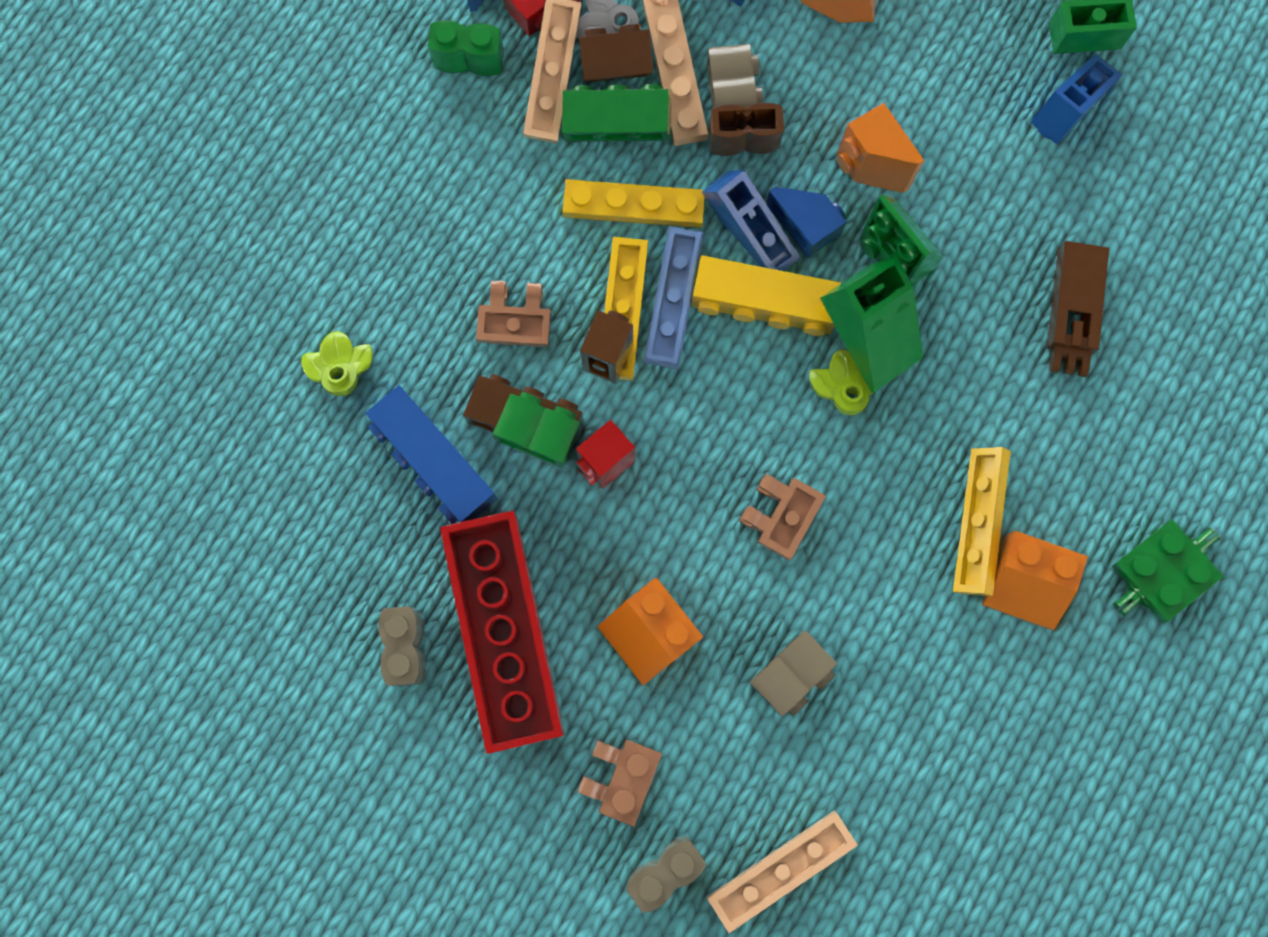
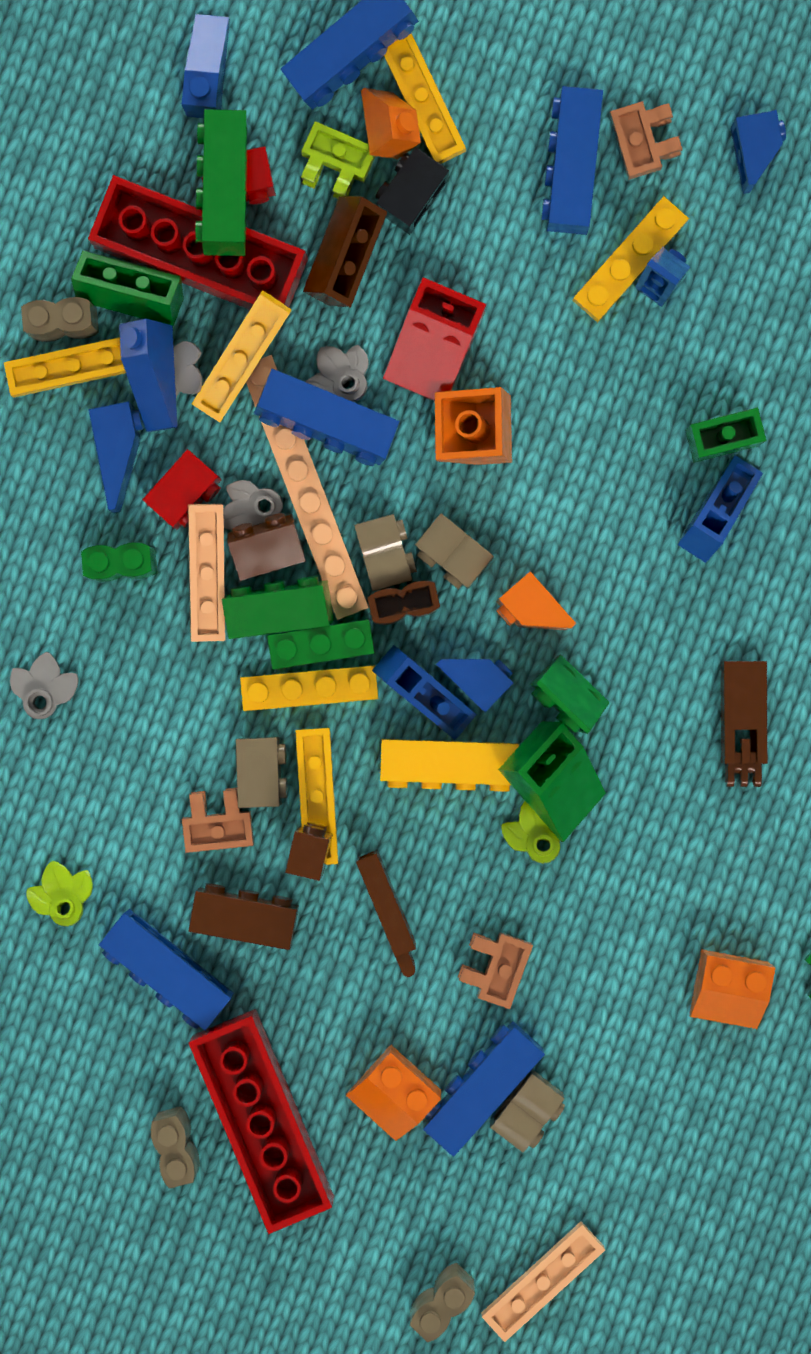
camera: 10 degrees left, 10 degrees up
(364, 153) = (46, 681): none -> light grey plate
(536, 429) = (259, 939): green brick -> none
(568, 272) = (260, 772): none -> dark tan brick
(605, 455) = (325, 948): red brick -> none
(628, 783) = (397, 1228): nougat plate -> none
(655, 158) = (321, 644): none -> green brick
(673, 298) = (362, 775): medium blue tile -> none
(678, 431) = (388, 910): none -> reddish brown hinge
(748, 640) = (483, 1087): none -> blue brick
(803, 93) = (453, 551): none -> dark tan brick
(982, 521) = (678, 943): yellow plate -> none

